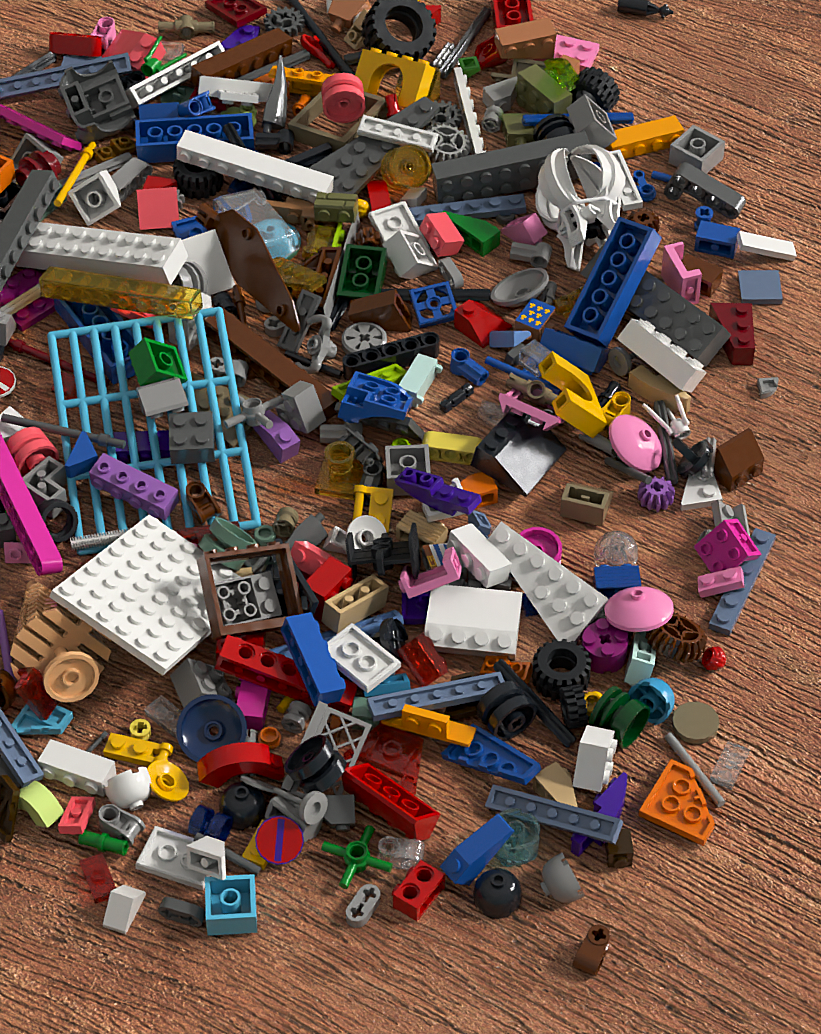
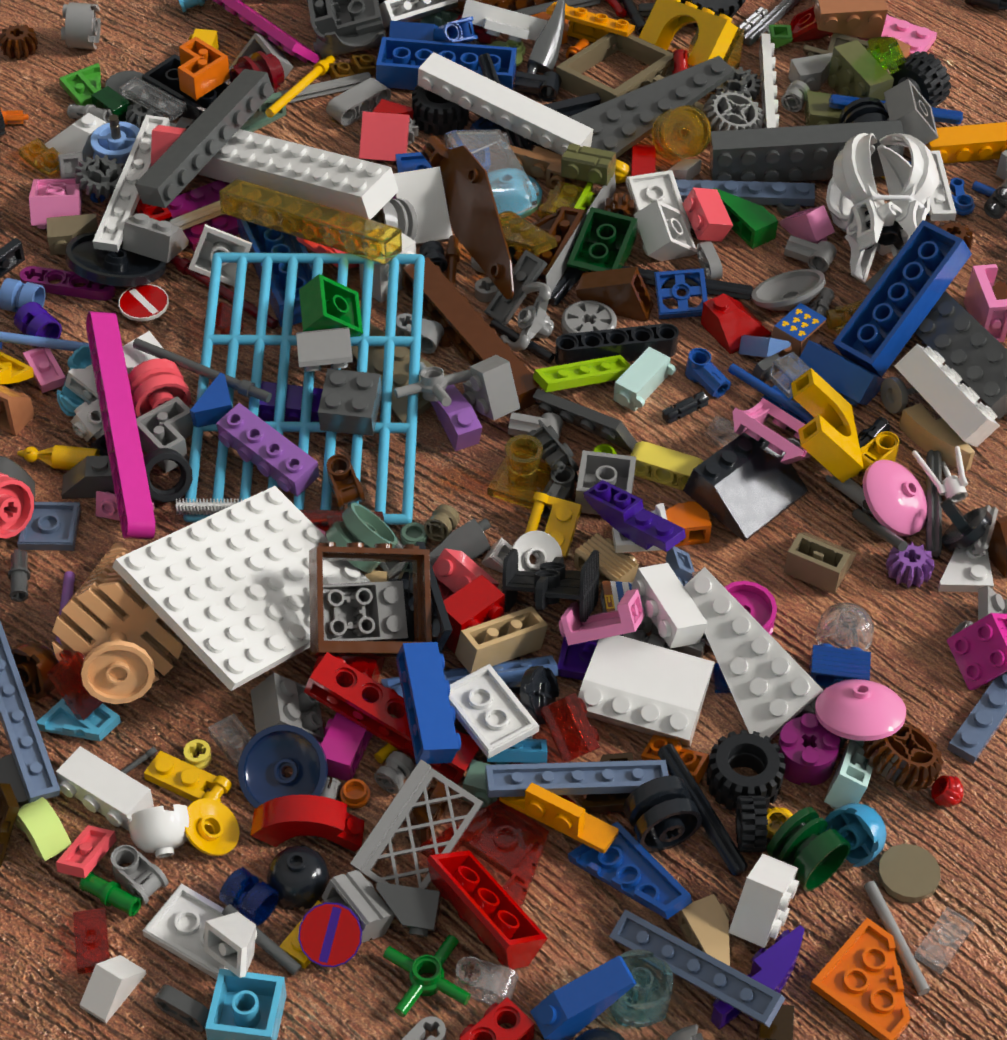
camera: 10 degrees right, 0 degrees up
(40, 325) = (213, 241): none -> white slope
(95, 197) = (316, 113): white slope -> none
(311, 807) = (378, 900): light grey piece -> none
(315, 764) = (396, 844): black wheel -> none
(343, 98) = (623, 44): coral wheel -> none
(373, 397) = (581, 389): blue slope -> none
(397, 133) = (678, 92): white tile -> none
(529, 386) = (773, 407): dark tan pin -> none
(720, 581) = (973, 691): bright pink plate -> none

